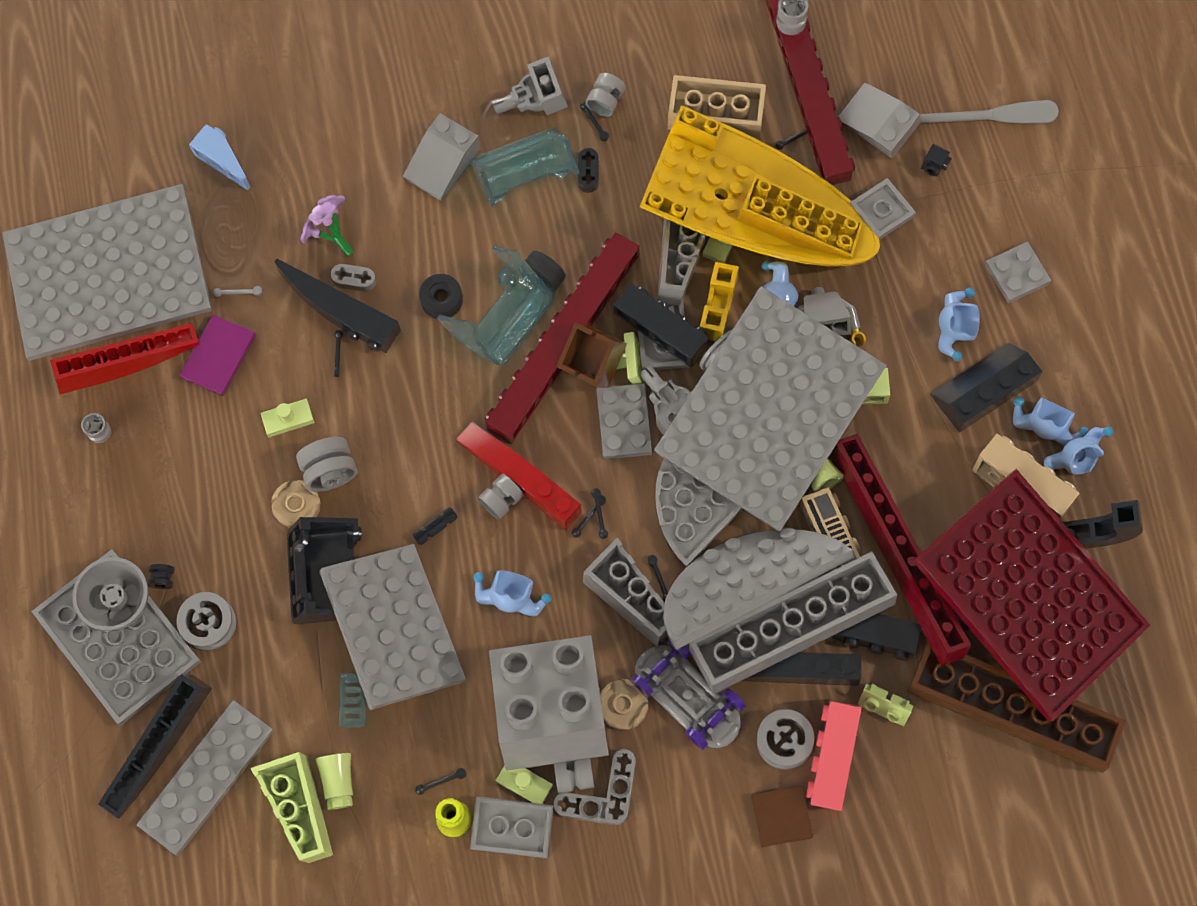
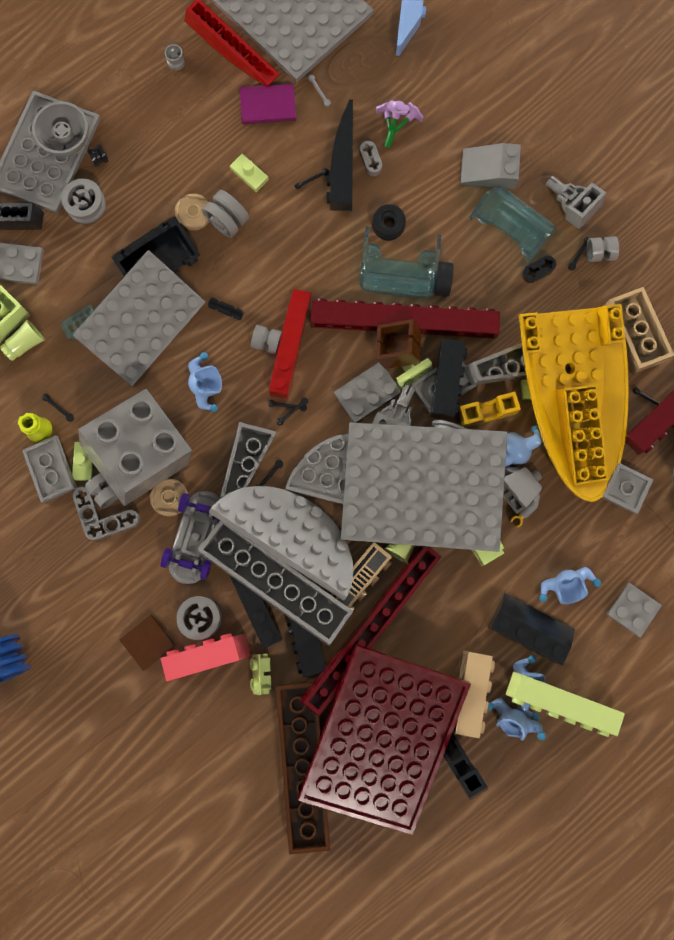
camera: 55 degrees right, 10 degrees up
(1085, 390) = (564, 703): none -> yellowish green brick

